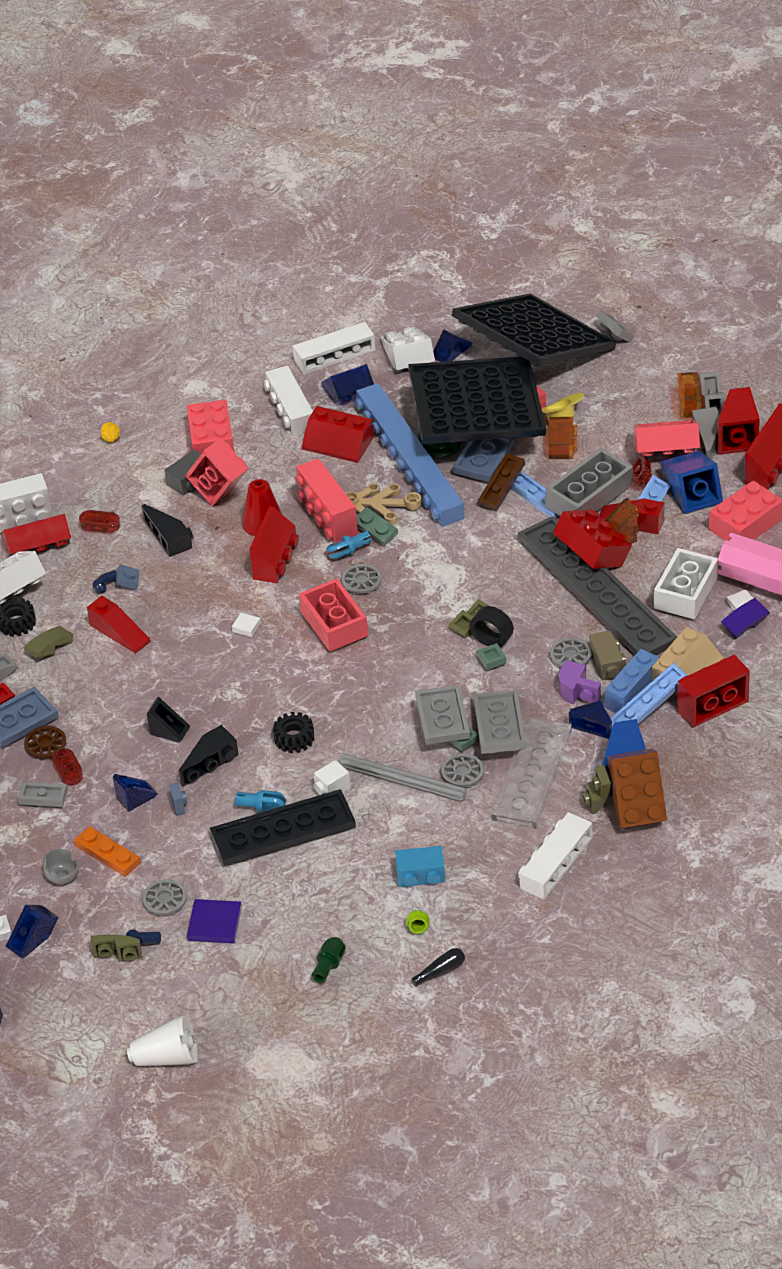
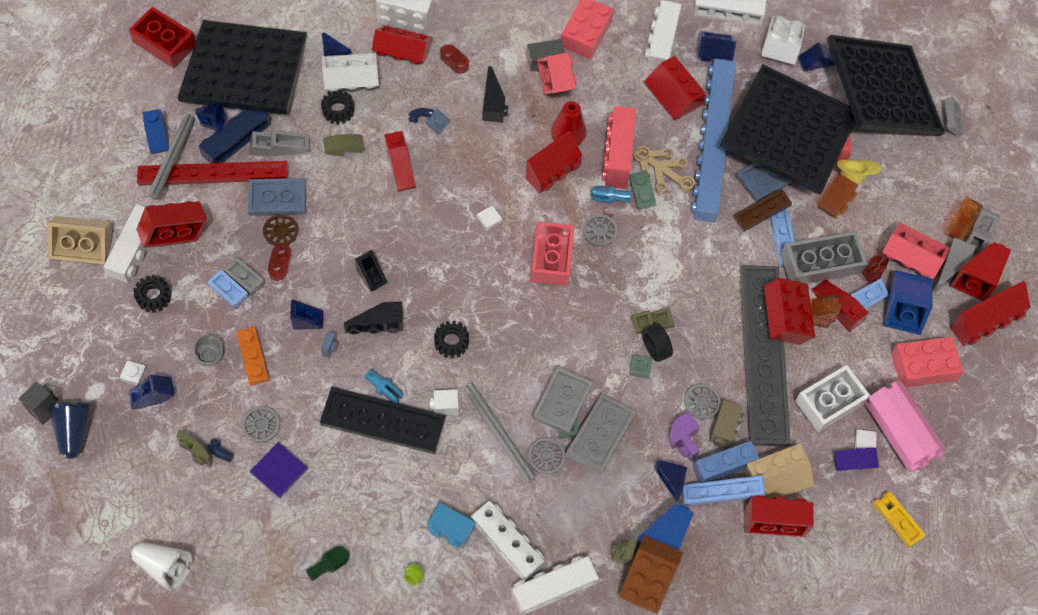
camera: 25 degrees right, 20 degrees up
(34, 812) = (227, 288): none -> light blue plate
(483, 847) = (507, 541): none -> white brick

